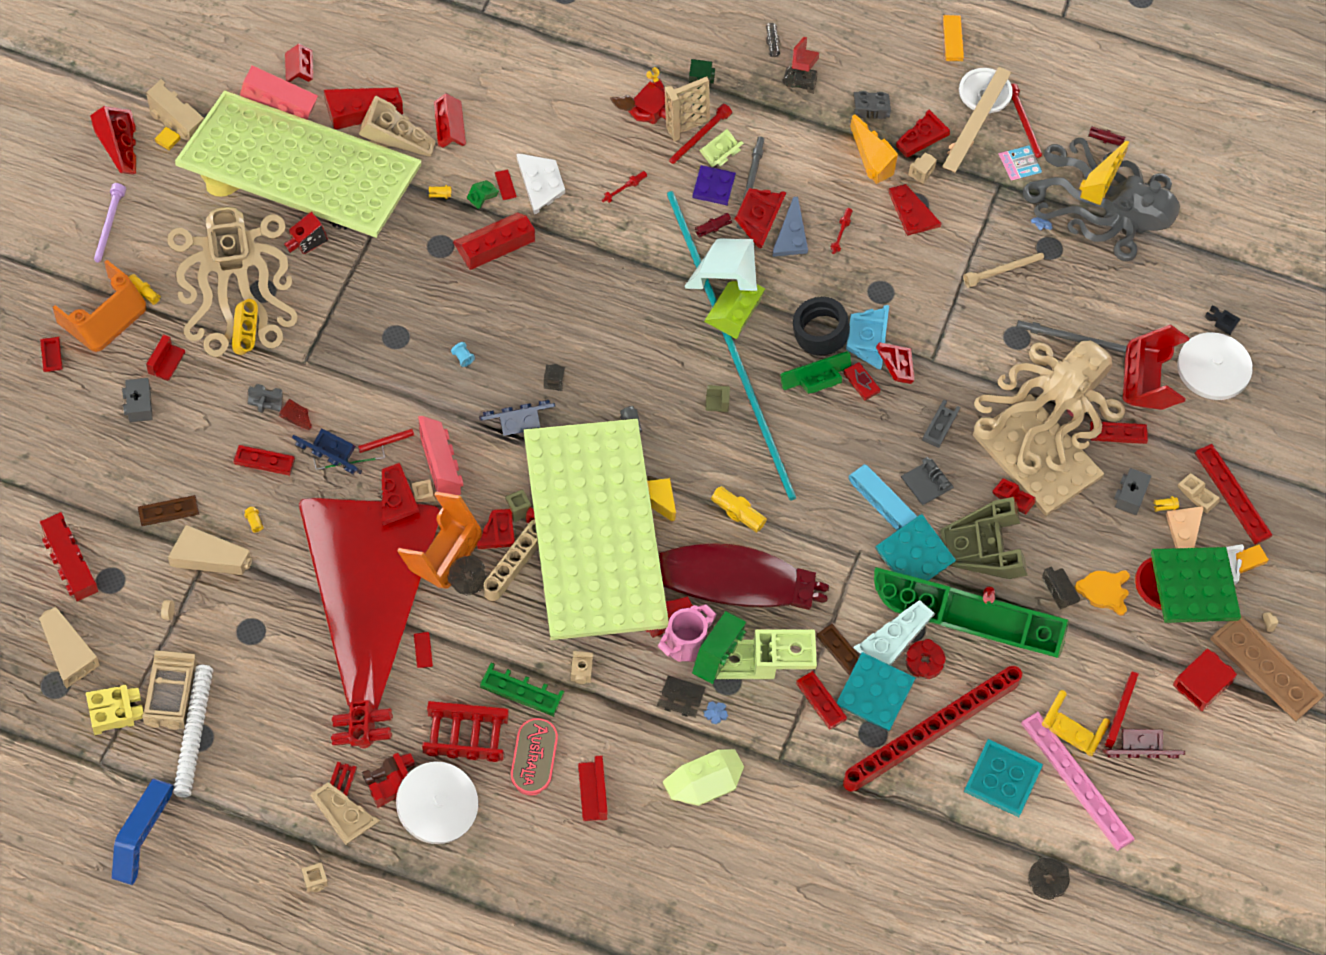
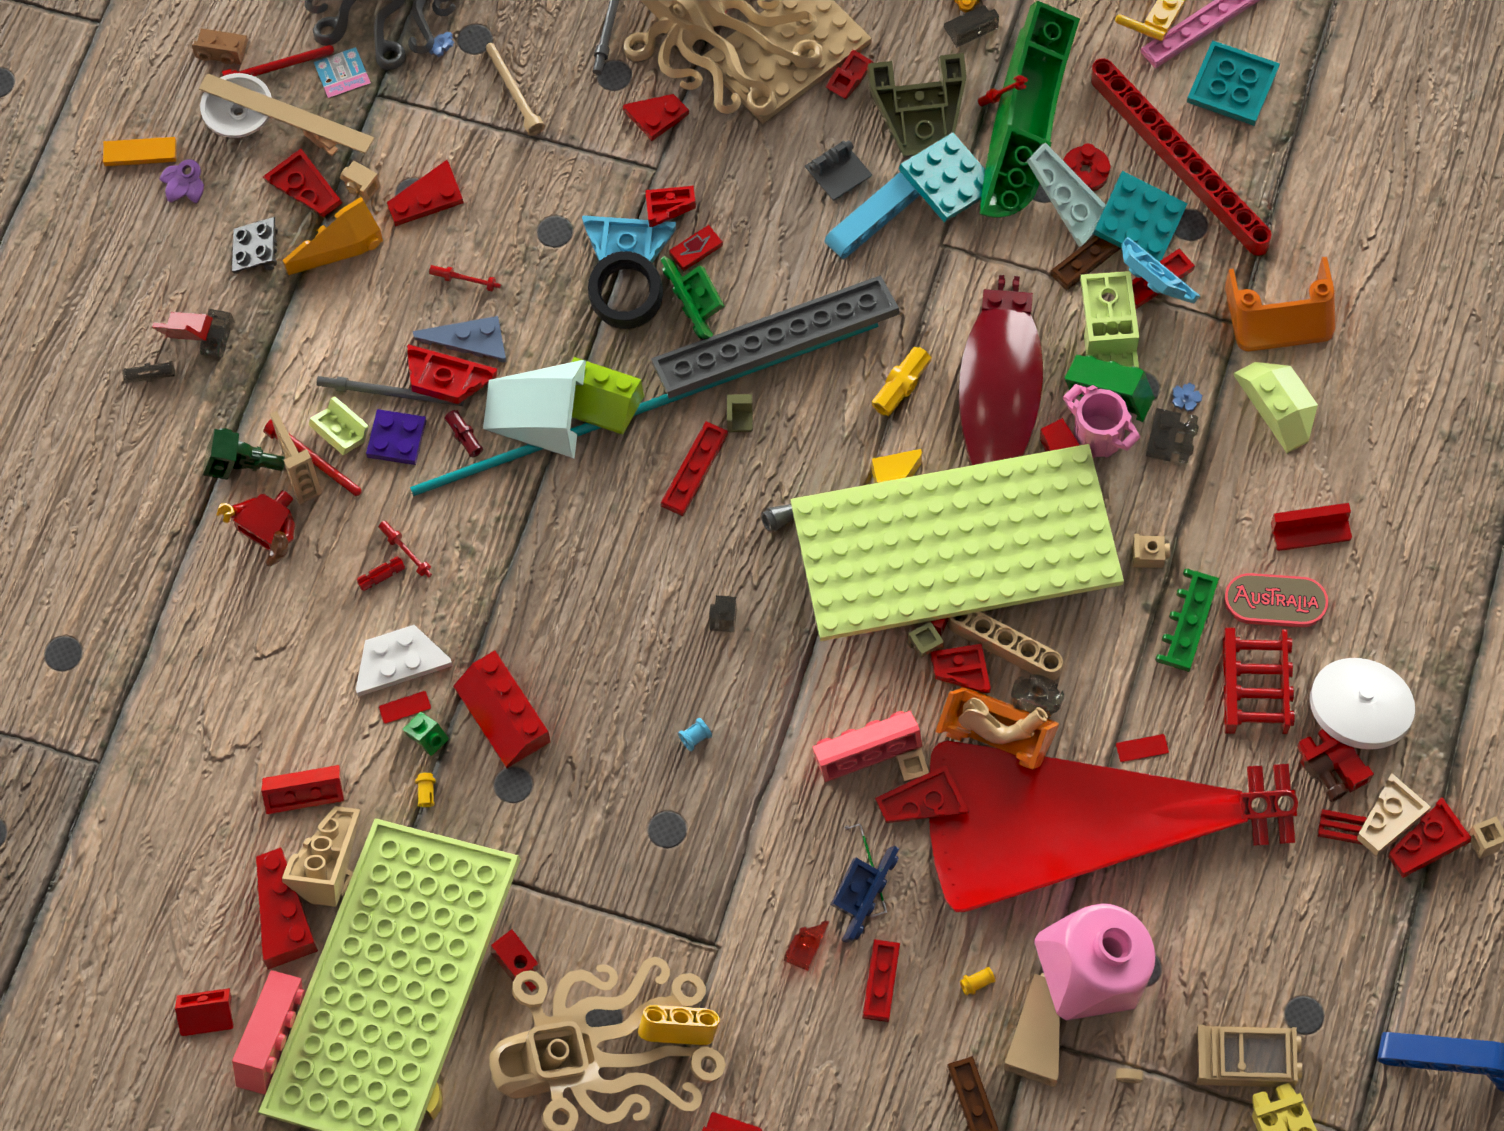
camera: 85 degrees left, 5 degrees up
(192, 731) = (1302, 1018): white piece -> none
(262, 604) = (1096, 961): none -> bright pink piece
(264, 399) = (791, 987): dark grey hips -> none
(321, 841) = (1430, 840): none -> red wing
(386, 440) = (836, 823): red bar -> none
(442, 540) = (978, 719): none -> tan piece
(520, 419) = (788, 655): bracket -> none
(607, 172) = (380, 573): none -> red axle
(676, 369) = (694, 468): none -> red tile
(775, 810) = (1283, 323): none -> orange windscreen
(781, 427) = (775, 336): none -> dark grey plate
(817, 687) = (1158, 276): none -> medium azure wing
(927, 63) = (181, 184): none -> medium lavender plate
(940, 425) = (754, 155): dark grey hinge -> none
(979, 362) = (656, 114): none -> red wing
(1041, 86) = (220, 46): none -> medium nougat bracket
(1046, 867) = (1355, 26): clear smoke plate -> none

